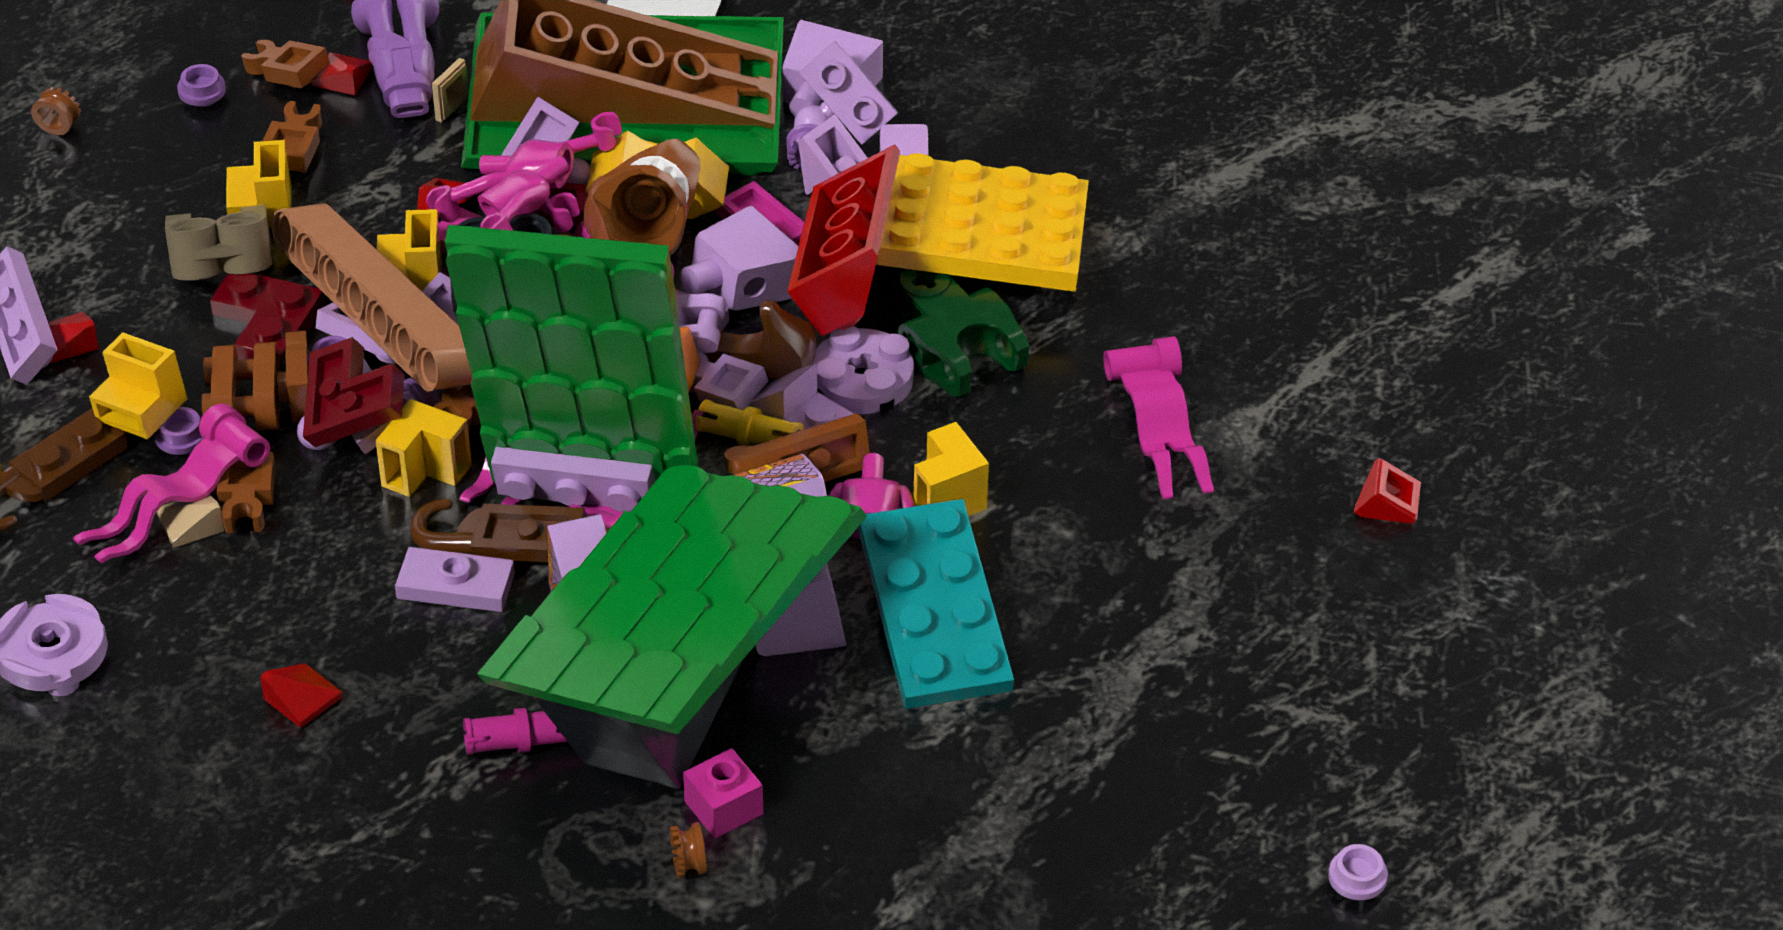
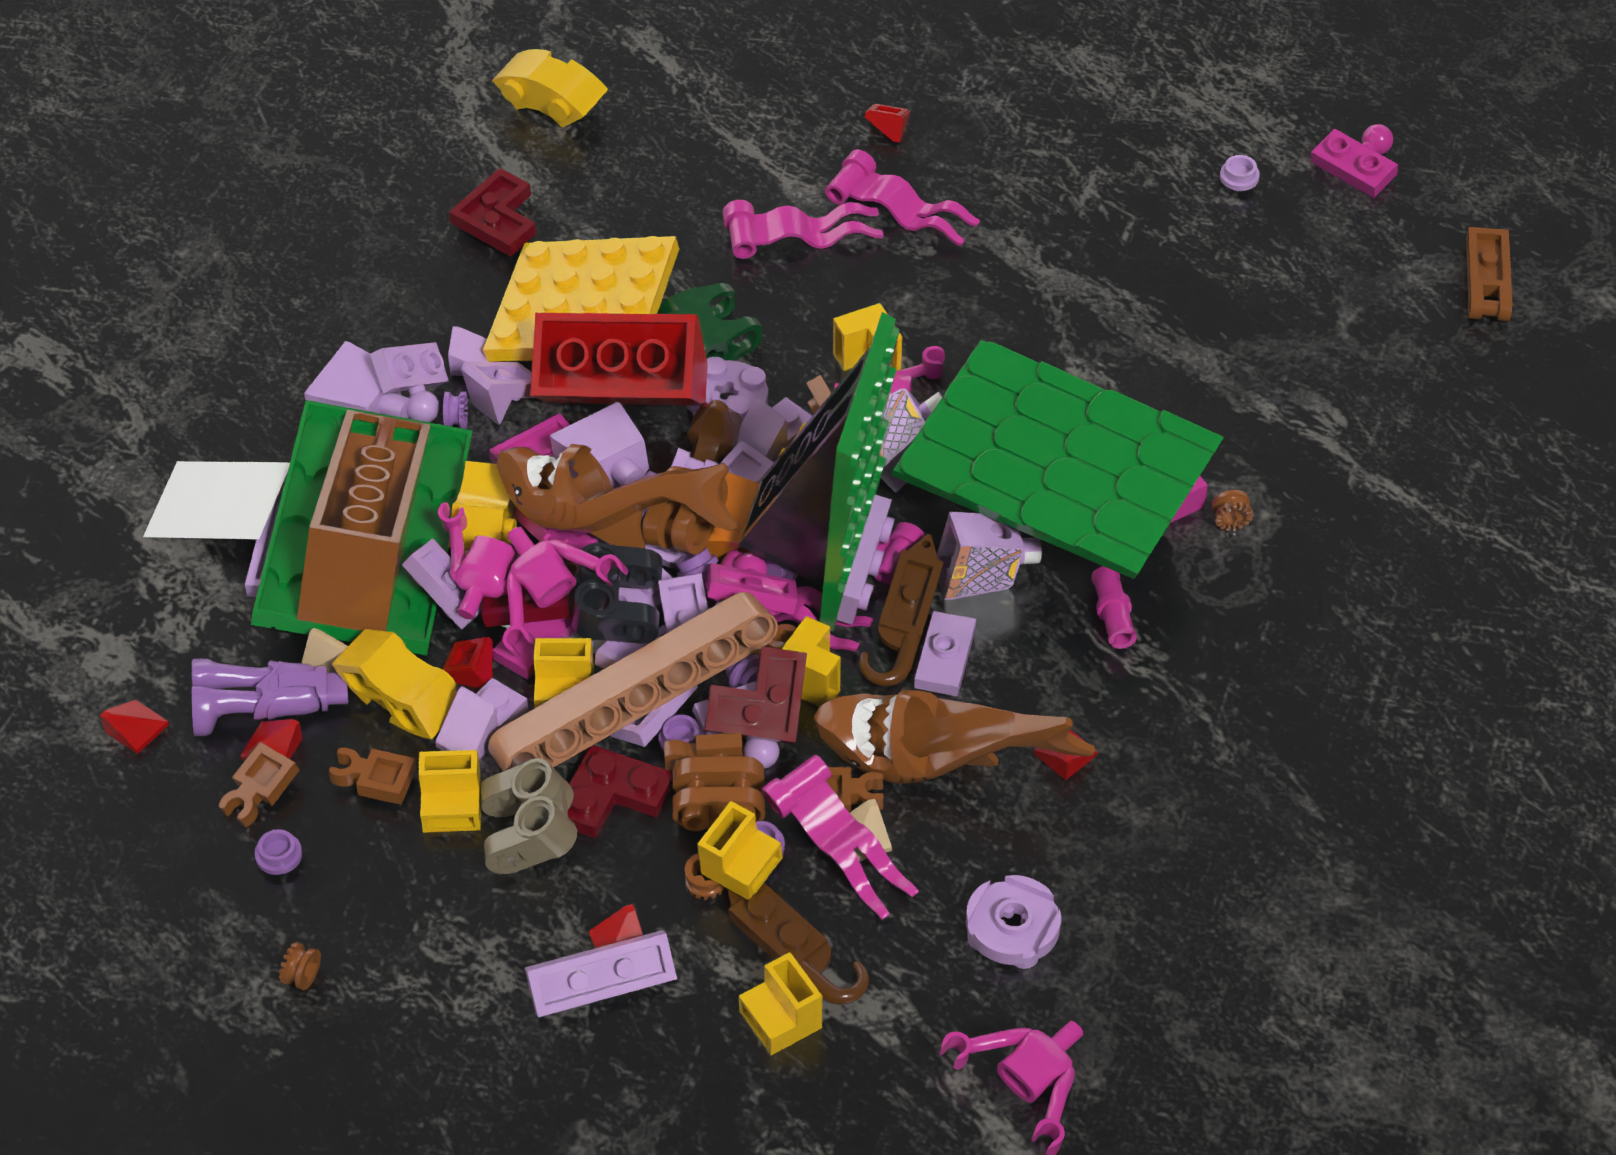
camera: 85 degrees left, 5 degrees up
(295, 533) = (924, 737): none -> dark orange piece
(366, 207) = (478, 716): none -> lavender slope
(402, 136) = (389, 673): none -> yellow brick
(935, 604) = (943, 349): teal plate -> none
(1134, 144) = (491, 215): none -> dark red plate
(1231, 499) = (861, 182): none -> dark pink flag
(1354, 171) = (549, 85): none -> yellow brick

